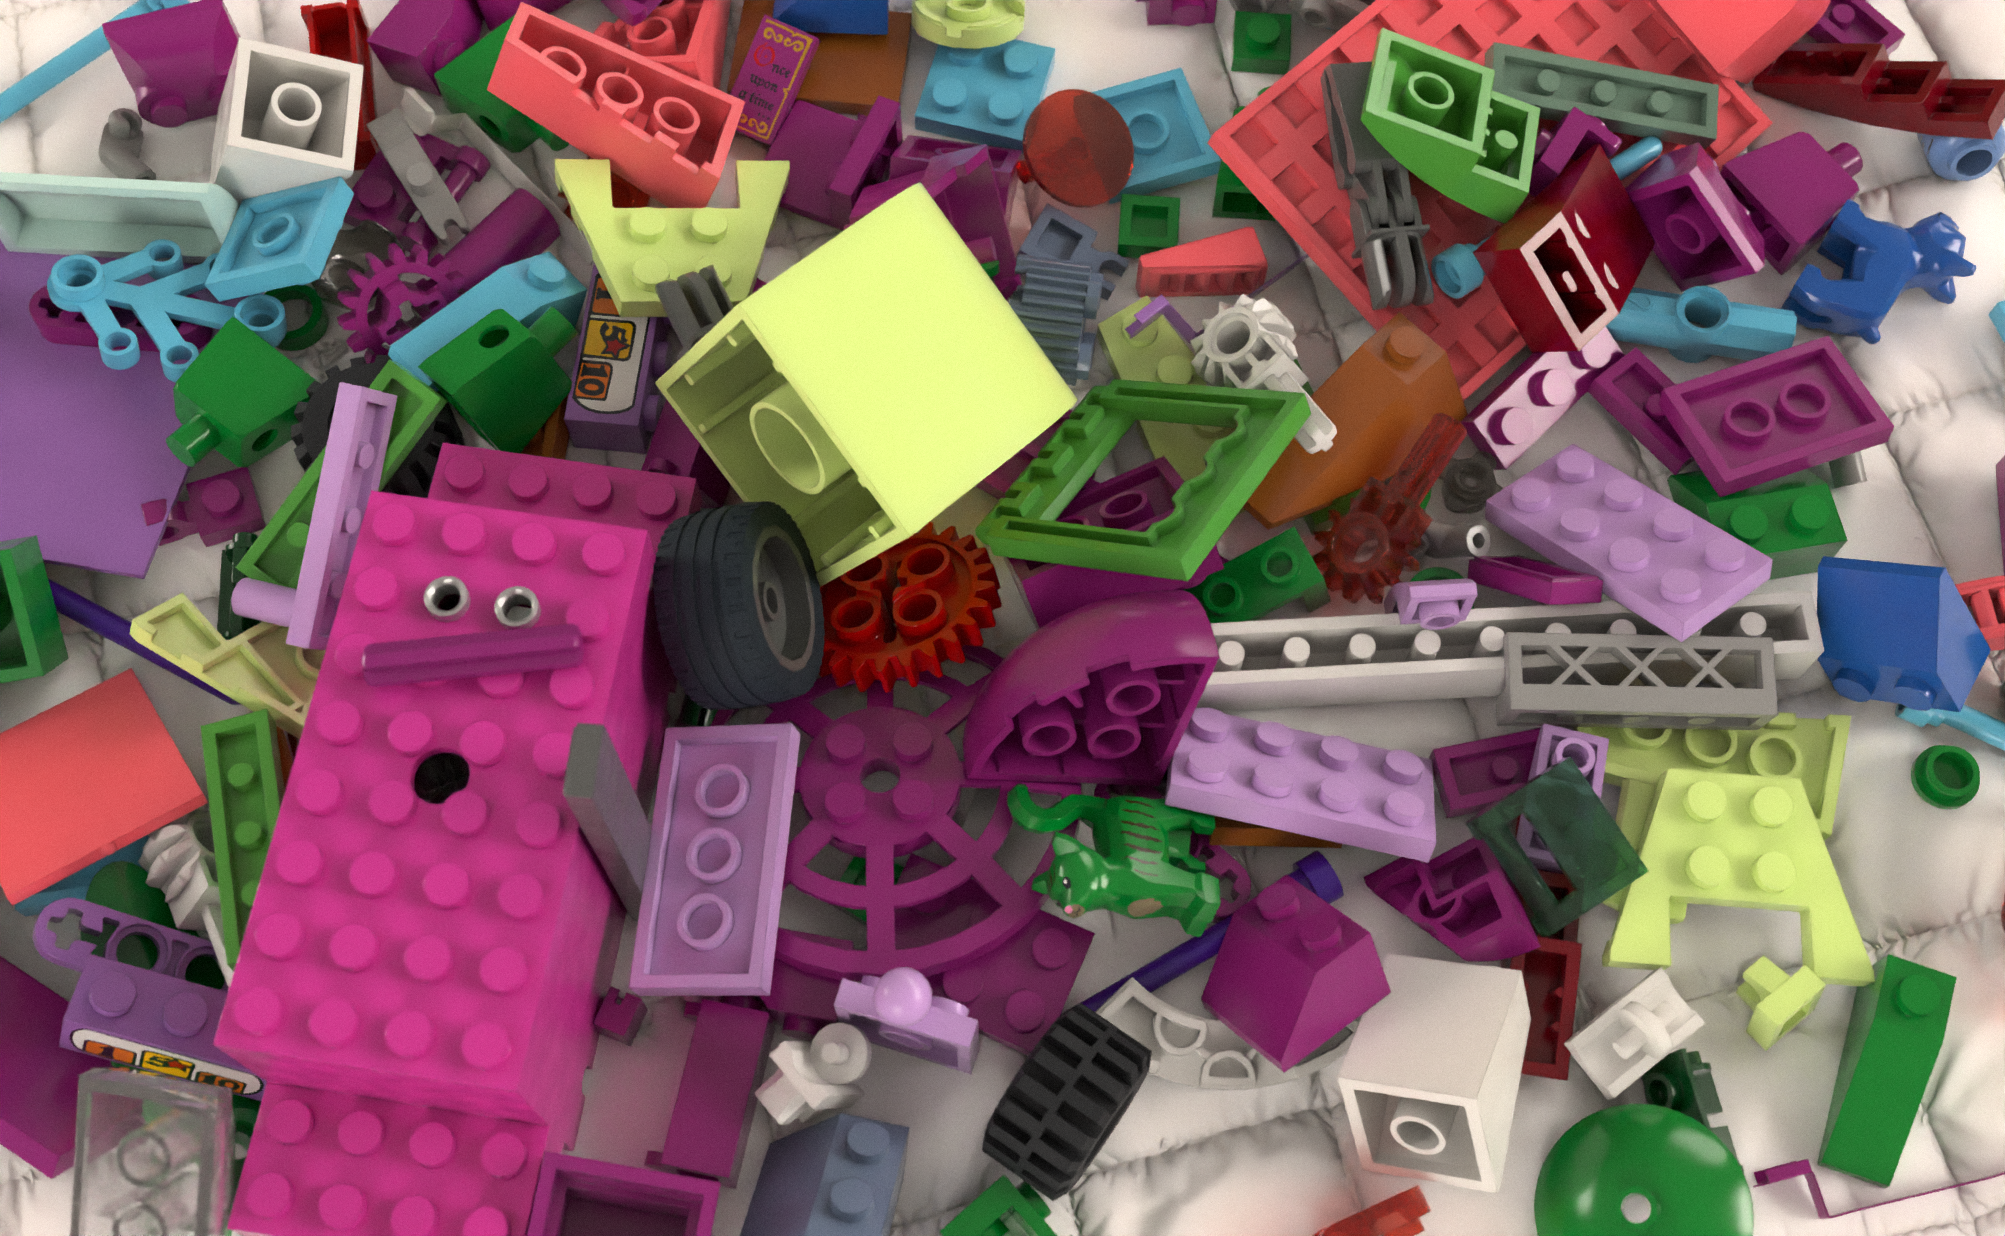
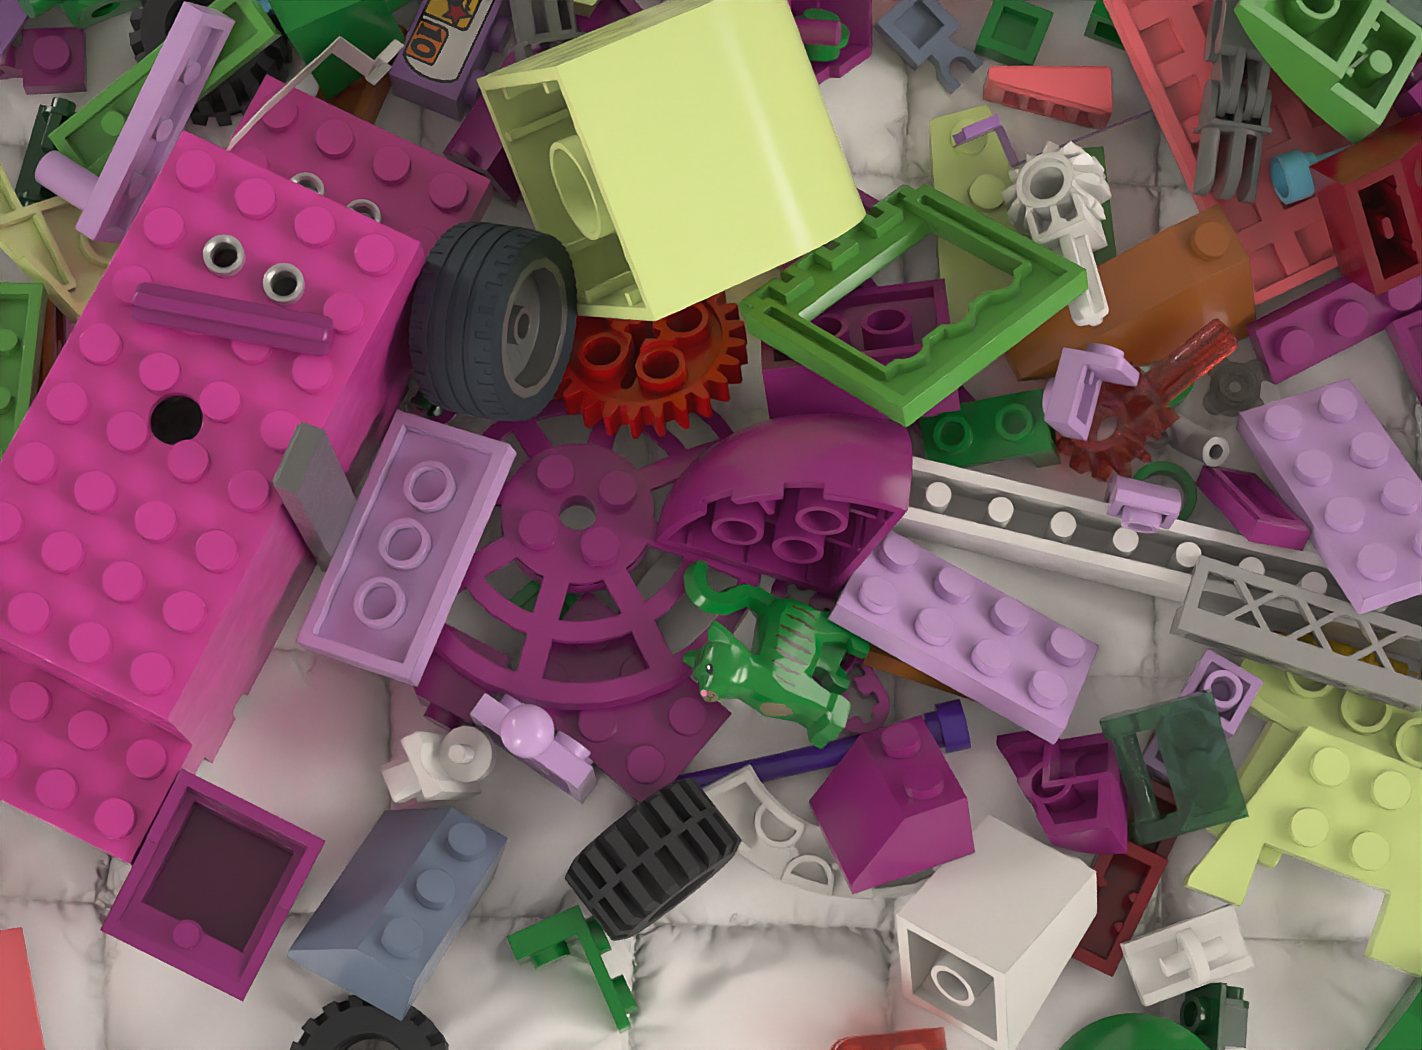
camera: 15 degrees right, 10 degrees up
(510, 401) = (371, 69): none -> white piece
(620, 1017) = (285, 657): magenta piece -> none
(717, 1090) = (350, 752): magenta brick -> none
(1055, 310) = (882, 105): sand blue brick -> none
(1327, 522) = (1074, 392): none -> lavender bracket
(1482, 770) = (1143, 672): magenta plate -> none
(1777, 999) = (1333, 966): yellowish green tile -> none

